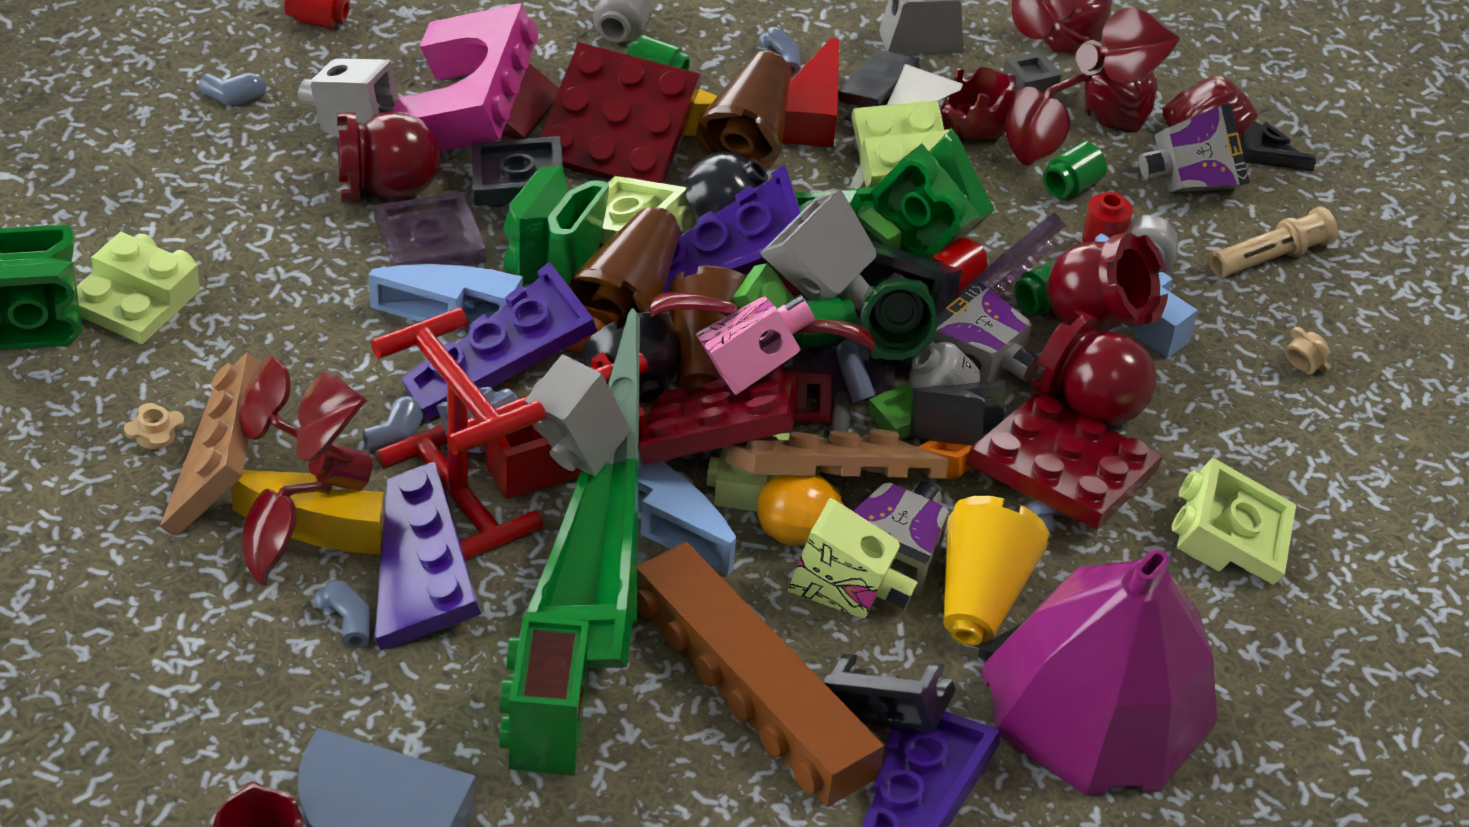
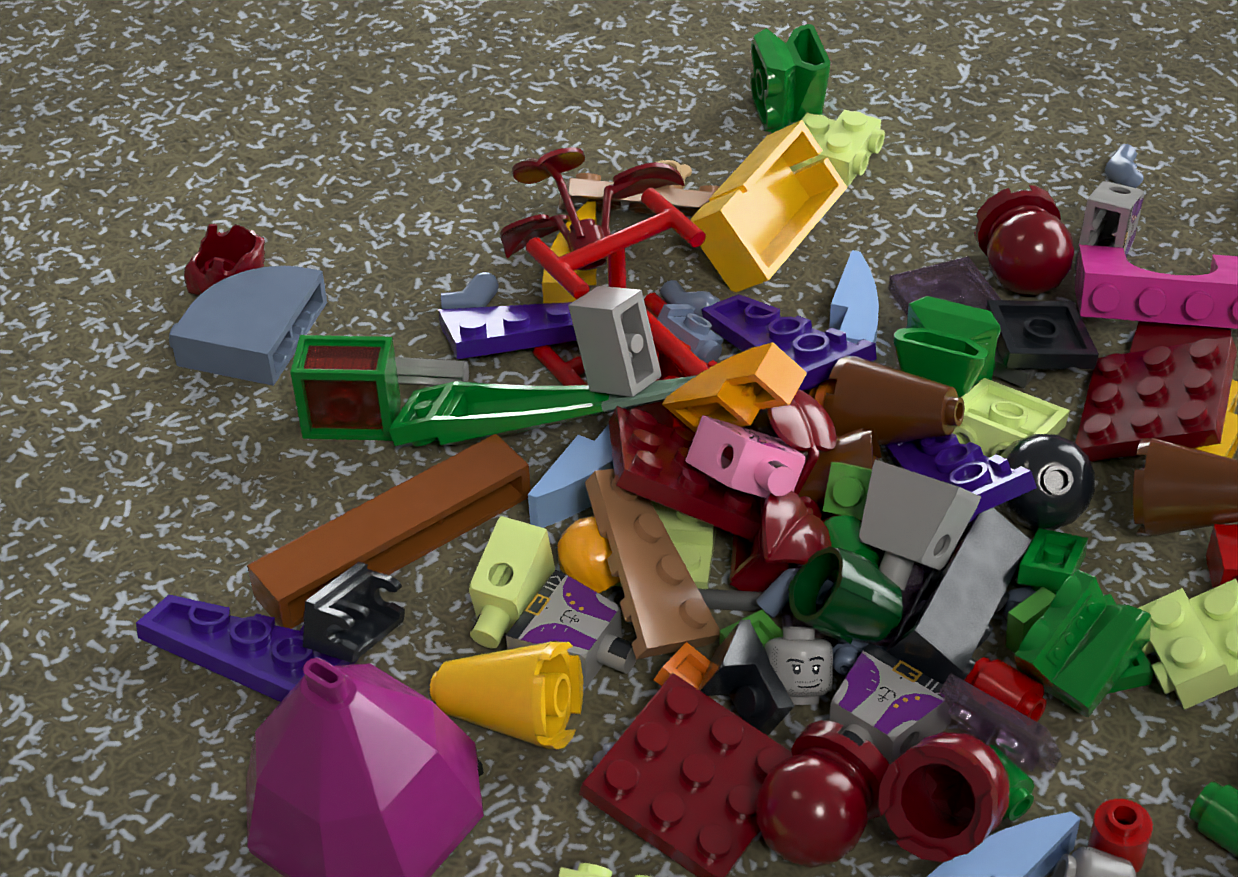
camera: 95 degrees right, 0 degrees up
(277, 324) = (767, 208): none -> yellow piece
(479, 669) = (431, 371): none -> light grey axle
(675, 327) = (738, 387): none -> light orange slope

